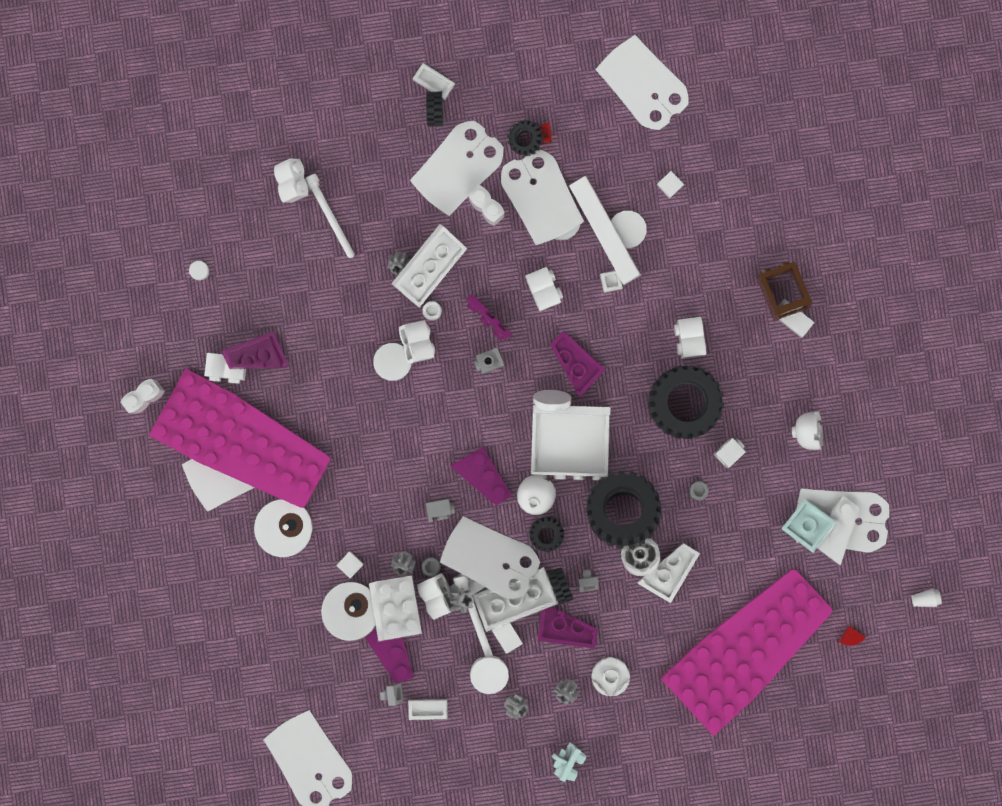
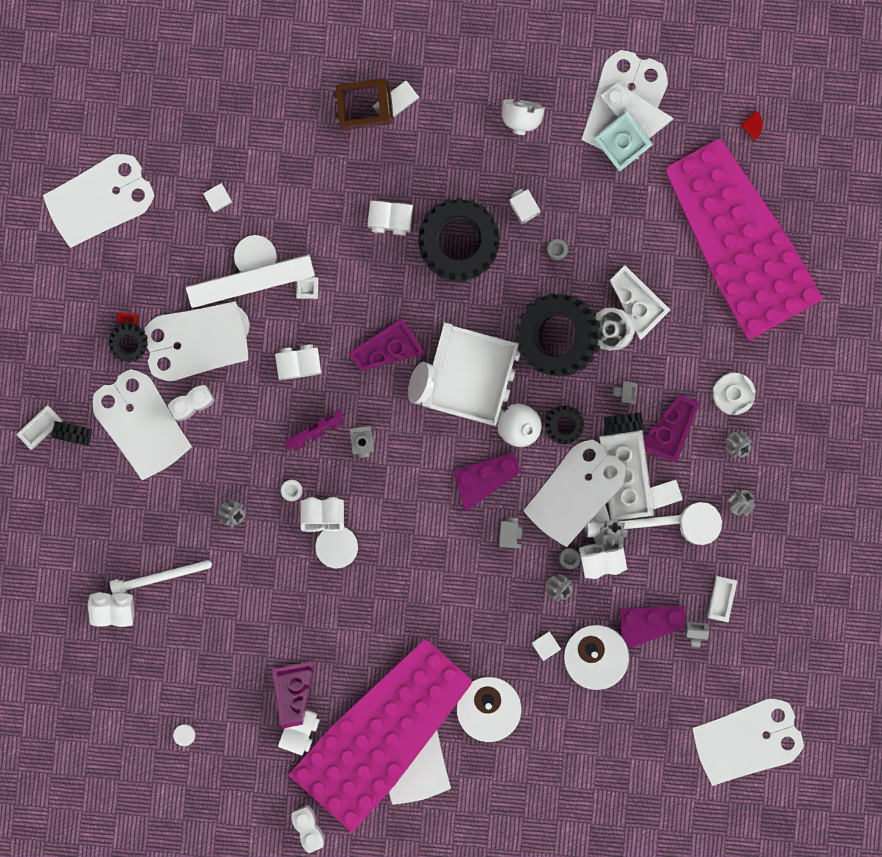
camera: 75 degrees left, 0 degrees up
(395, 608) = (604, 607): white brick -> none
(429, 265) = (242, 481): white plate -> none
(566, 760) = (812, 463): light aqua hips -> none
(927, 598) = (731, 35): white cone -> none

